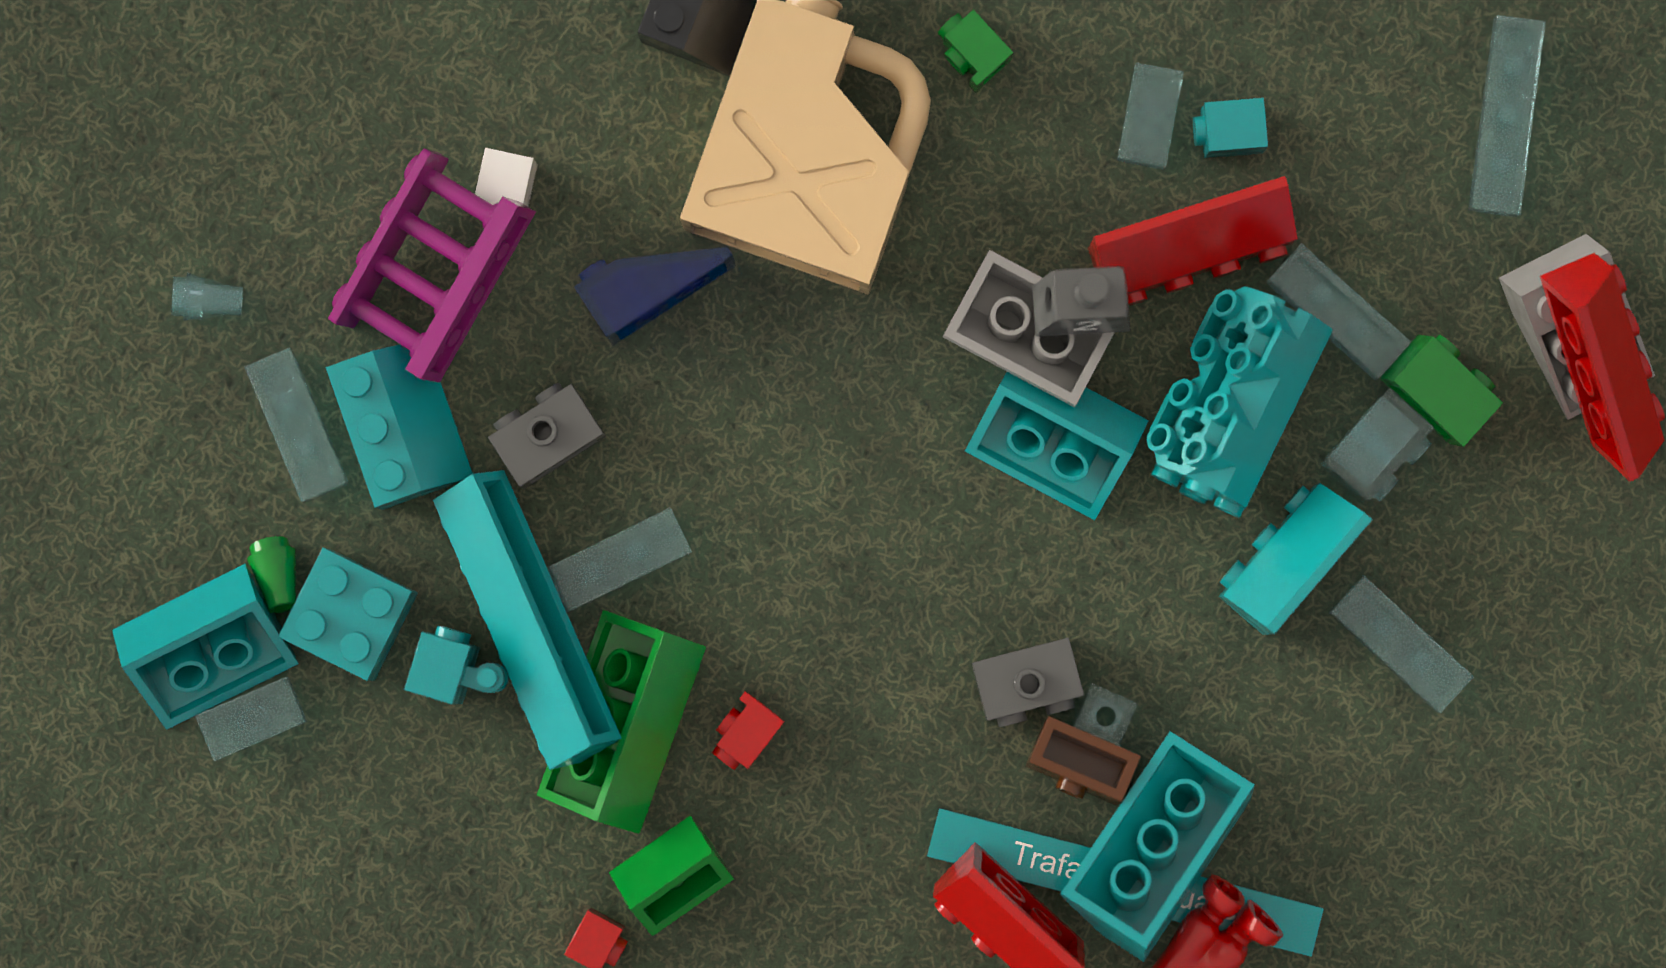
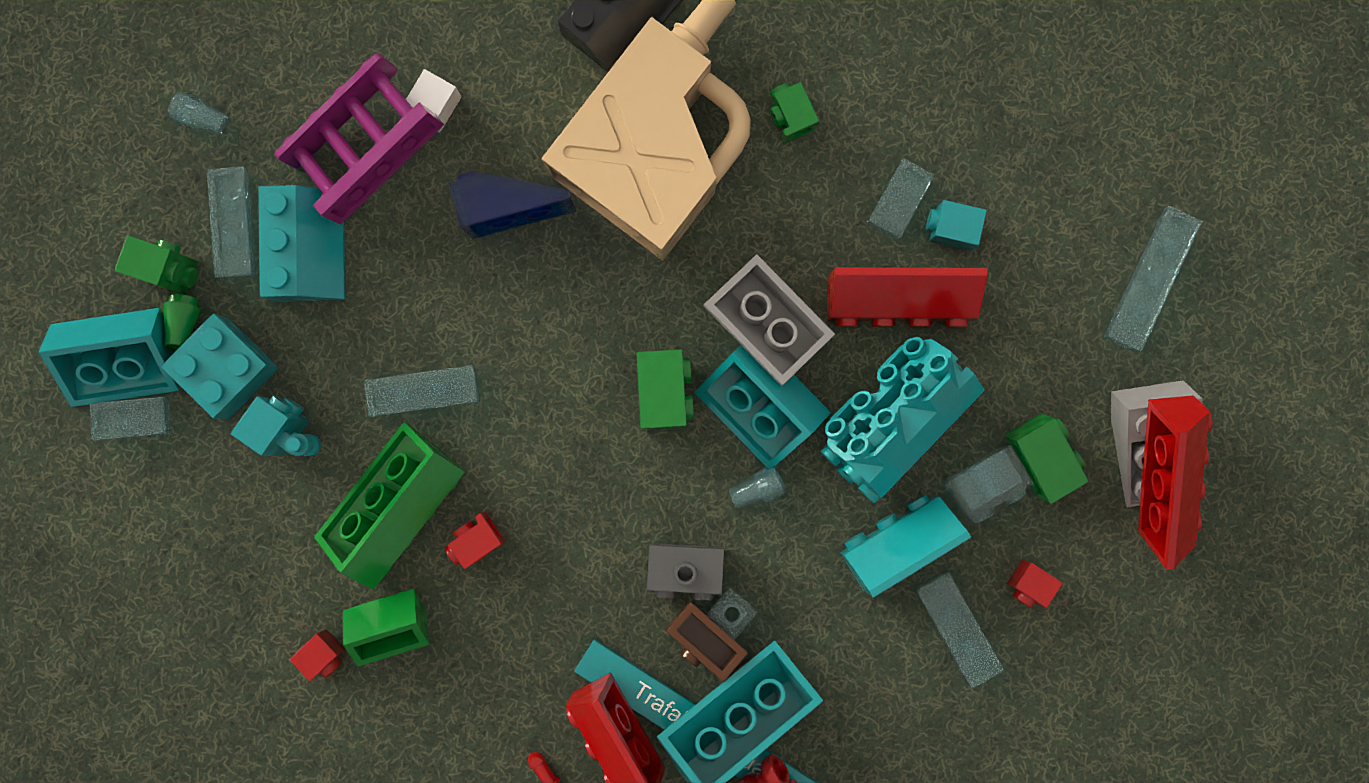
camera: 10 degrees right, 0 degrees up
(230, 508) = (158, 264): none -> green brick
(526, 619) = (341, 412): teal brick -> none
(545, 435) = (402, 285): dark grey brick -> none
(926, 460) = (662, 389): none -> green brick
(1081, 302) = (811, 311): dark grey torso -> none
(1087, 547) = (759, 488): none -> clear light blue cone
(1355, 324) = (1001, 395): clear light blue plate -> none
(1476, 557) = (1033, 585): none -> red plate

